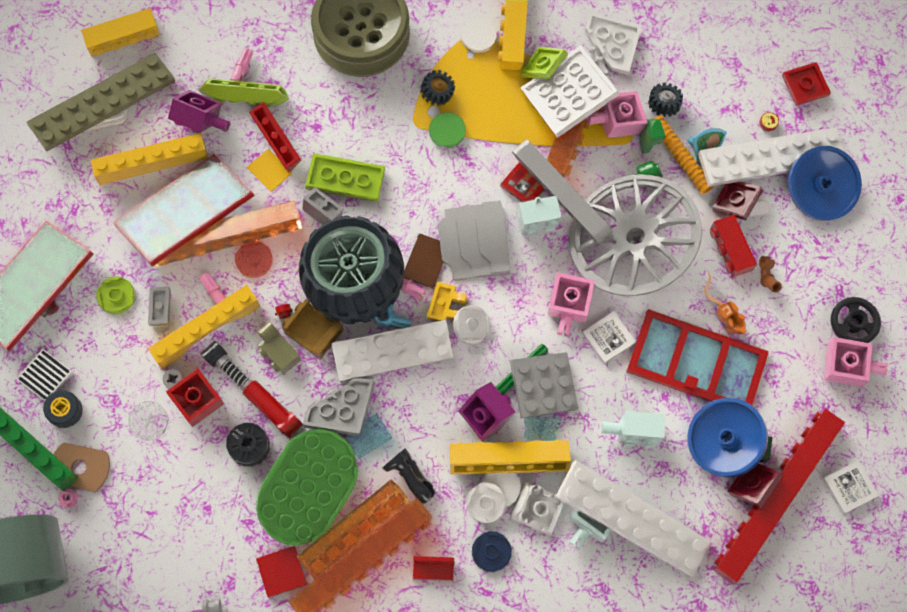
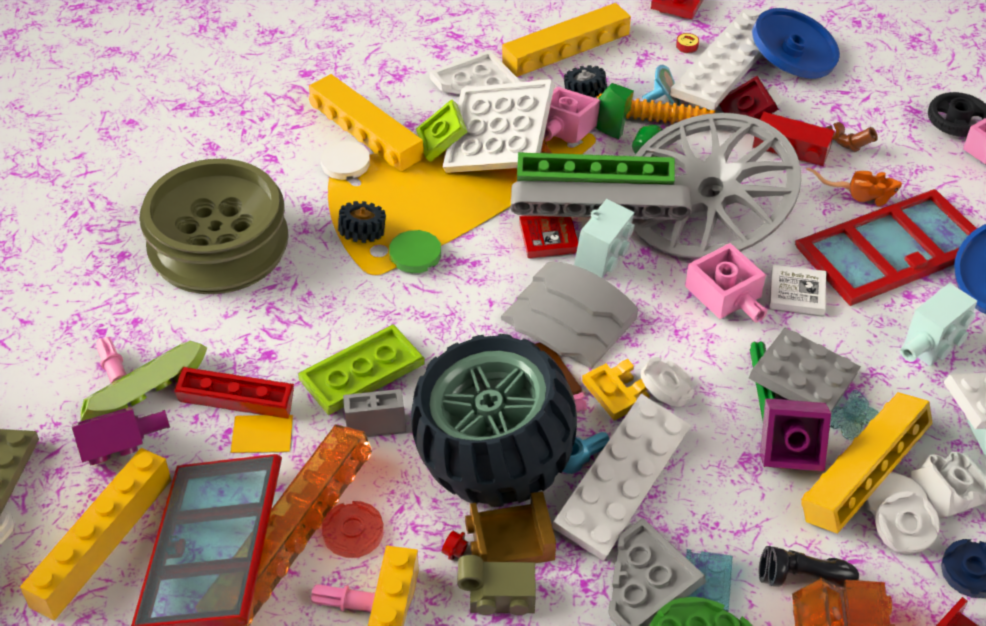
camera: 45 degrees left, 25 degrees down
(573, 173) = (595, 168): none -> bright green brick
(697, 56) = (565, 39): none -> yellow brick

